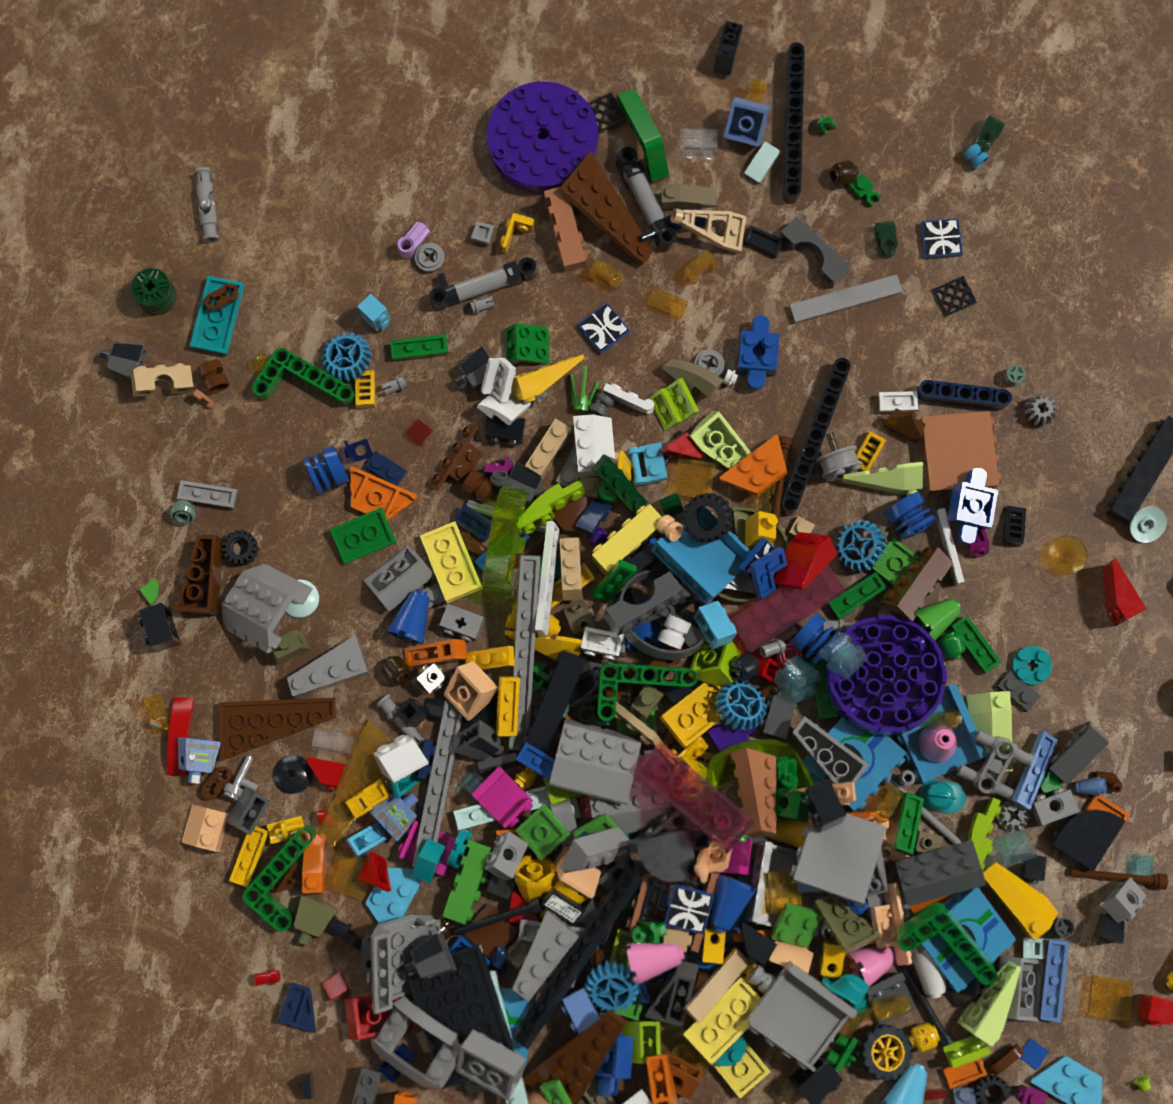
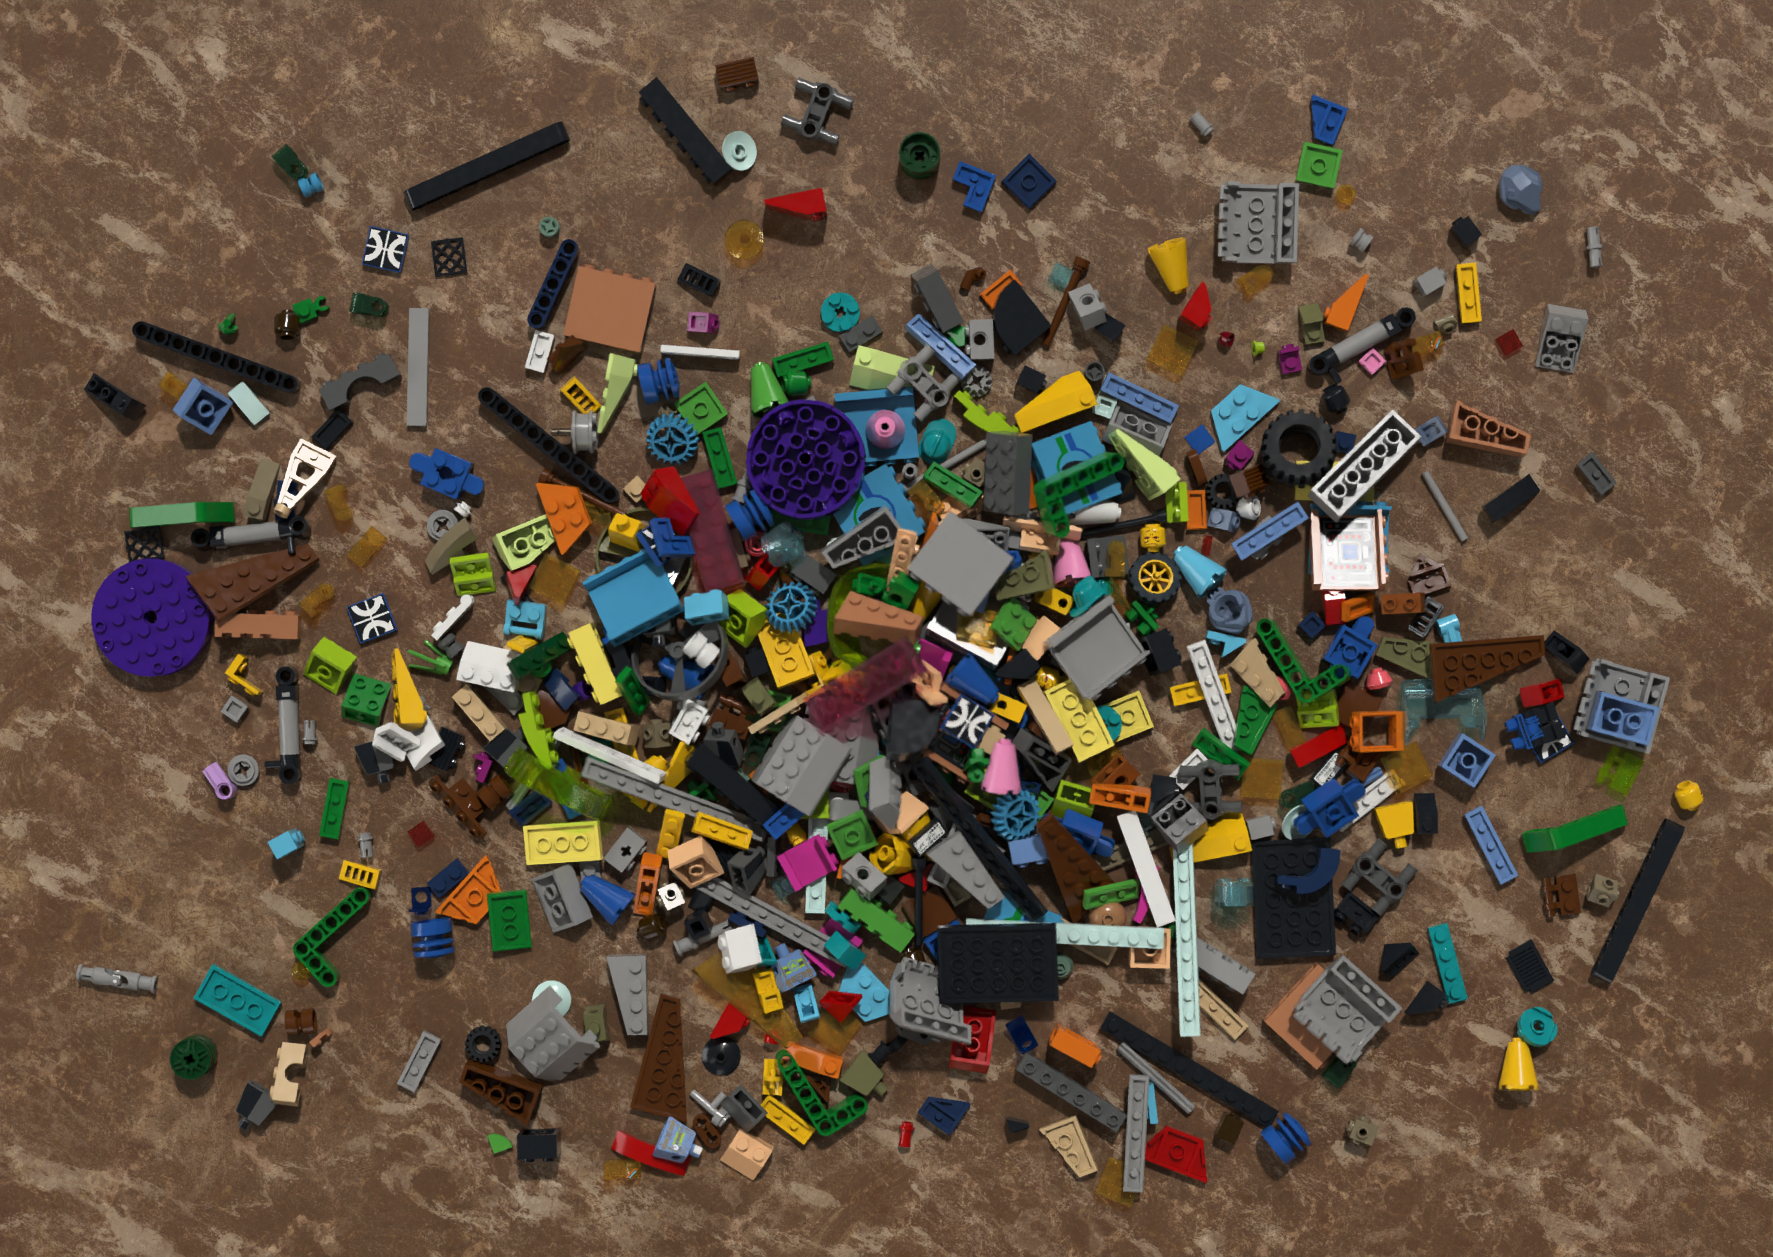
camera: 80 degrees left, 10 degrees up
(182, 512) = (430, 1090): sand green cone -> none
(225, 299) = (226, 989): reddish brown beam -> none
(333, 741) = (702, 1007): clear brick -> none
(335, 986) = (934, 1072): red slope -> none
(342, 366) = (329, 900): dark azure gear -> none
(394, 1030) = (990, 1027): light grey wedge -> none
(431, 958) = (936, 975): dark grey torso -> none
(472, 546) = (553, 816): reddish brown arm -> none
(490, 1064) = (1050, 950): light grey slope -> none
(499, 478) = (495, 770): dark grey plate -> none
(499, 958) = (956, 911): dark blue arm -> none
(549, 303) = (329, 665): none -> lime slope
(625, 616) = (672, 694): dark grey arch -> none
(639, 670) = (735, 699): green beam -> none
(668, 526) = (599, 620): light nougat wheel -> none
(671, 504) = (573, 609): dark green plate -> none
(692, 522) = (597, 566): black tyre -> none
(698, 143) = (208, 461): clear brick -> none
(744, 667) = (756, 592): black head -> none
(761, 979) = (1052, 673): light grey wheel -> none
(777, 646) = (746, 558): light grey pin -> none
(823, 805) = (911, 565): black brick -> none
(843, 655) = (775, 498): clear light blue brick -> none
(916, 583) = (726, 397): reddish brown wedge -> none
(950, 719) = (867, 411): clear yellow plate -> none
(978, 511) = (668, 318): brick -> none
(1015, 848) = (1007, 391): clear light blue piece -> none
(1034, 410) = (592, 220): light grey gear -> none
(1050, 303) = (486, 166): none -> black beam
(1092, 786) = (973, 295): medium blue cone -> none
(1140, 1049) = (1226, 339): none -> dark red hinge

